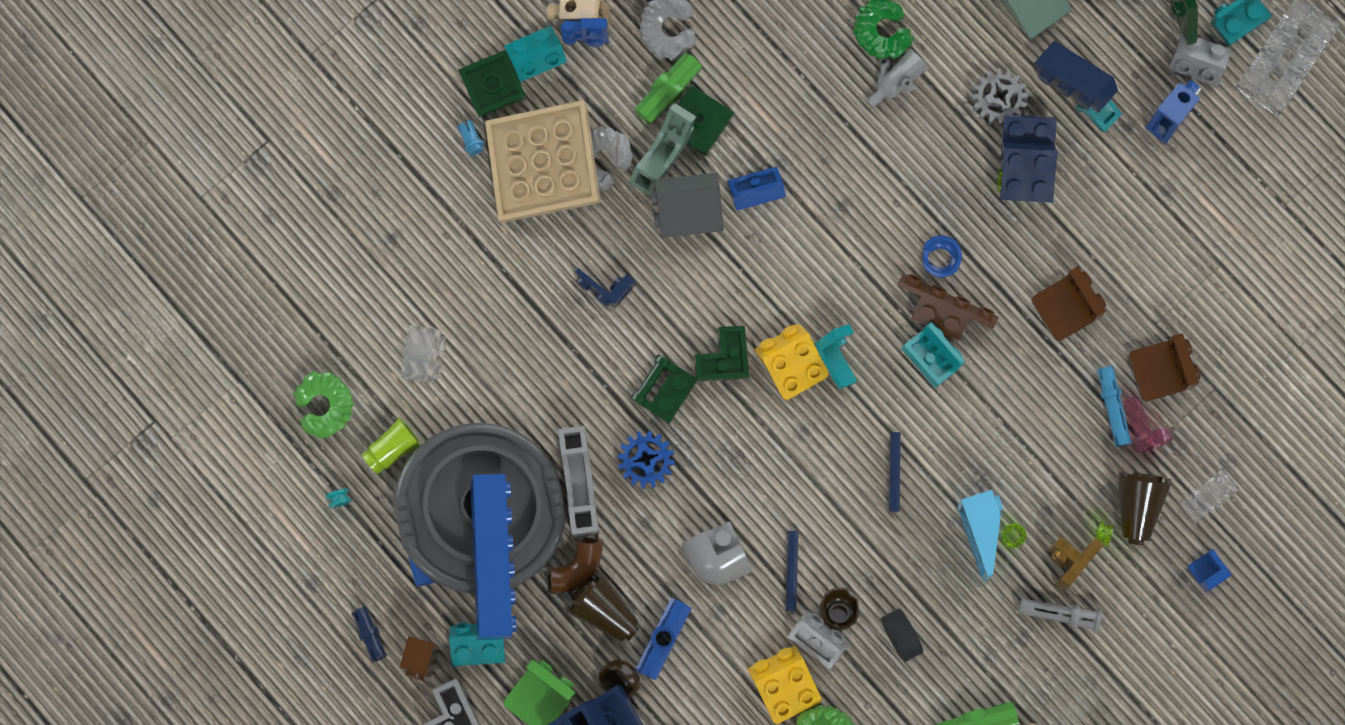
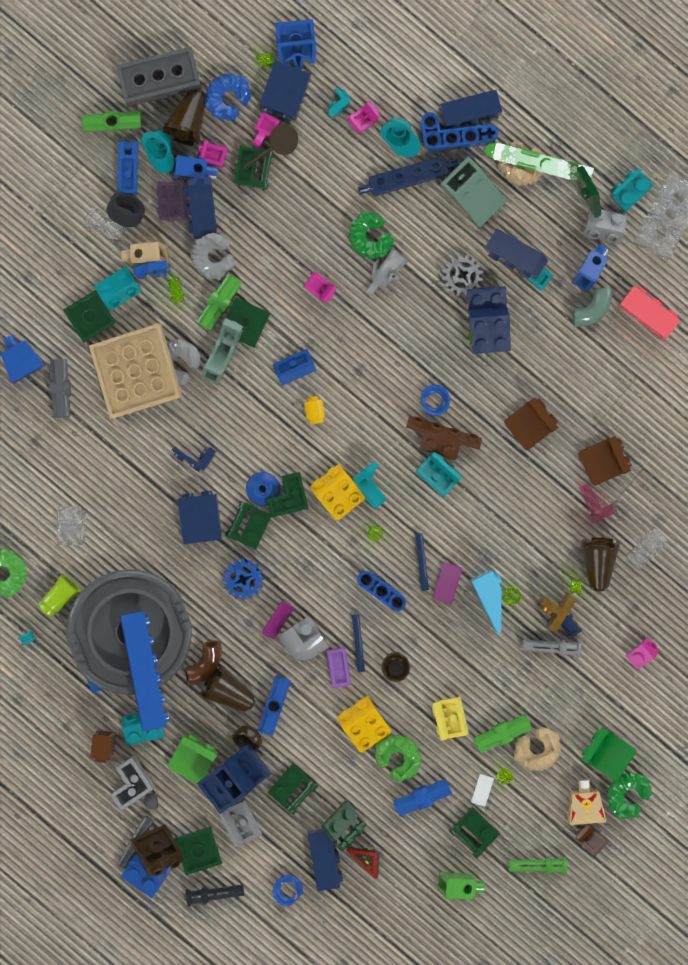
camera: 15 degrees left, 10 degrees up
(369, 634) = (64, 731): dark blue pin -> none
(391, 127) = (20, 359): none -> blue torso
(437, 171) = (60, 388): none -> dark grey piece
(471, 138) = (80, 359): dark azure pin -> none
(578, 481) = (198, 603): light grey arch -> none
(599, 369) = (200, 517): none -> dark blue brick
(612, 66) = (176, 290): none -> clear neon green pin
(680, 334) = (258, 479): none -> blue piece
(685, 522) = (278, 620): none -> magenta slope
(688, 205) = (246, 390): dark grey brick -> none
(760, 601) = (338, 667): none -> medium lavender tile
(775, 247) = (314, 410): none -> yellow brick
(805, 87) = (320, 287): none -> dark pink bracket
(818, 639) = (384, 690): light grey bracket -> none
(830, 489) = (388, 597): none -> blue beam
(833, 429) = (373, 537): none -> clear neon green hinge
(902, 635) = (442, 680): black tyre -> none
(906, 692) = (450, 718): none -> light yellow bracket
(926, 505) = (447, 583): none -> magenta slope
(1088, 588) = (570, 627): none -> dark blue bush
(1113, 403) = (572, 492): dark azure pin -> none
(1174, 166) = (595, 310): none -> sand green cylinder
(1186, 641) = (642, 653): none -> dark pink bracket
(1209, 570) = (653, 602): blue panel -> none
(1247, 179) = (649, 312): none -> coral brick

